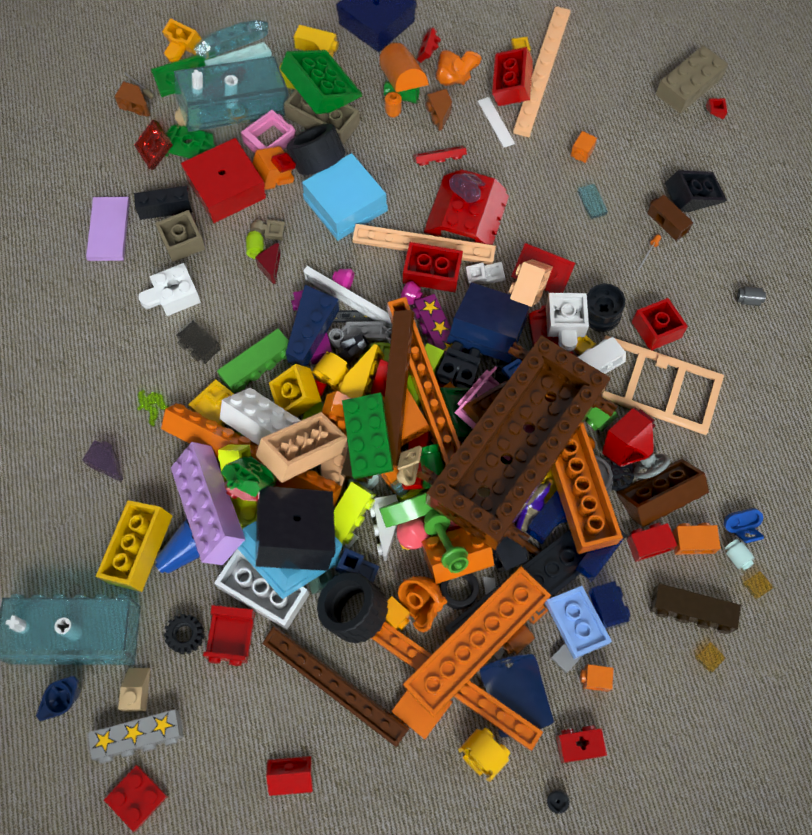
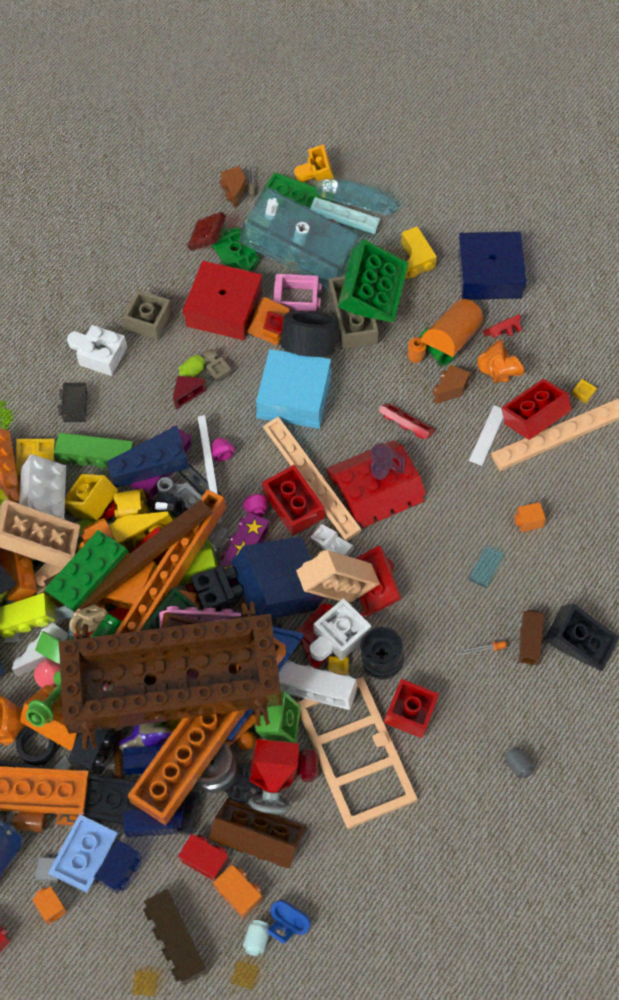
camera: 50 degrees right, 5 degrees down
(108, 229) = (112, 267): lavender tile -> none
(162, 202) = (165, 280): black brick -> none

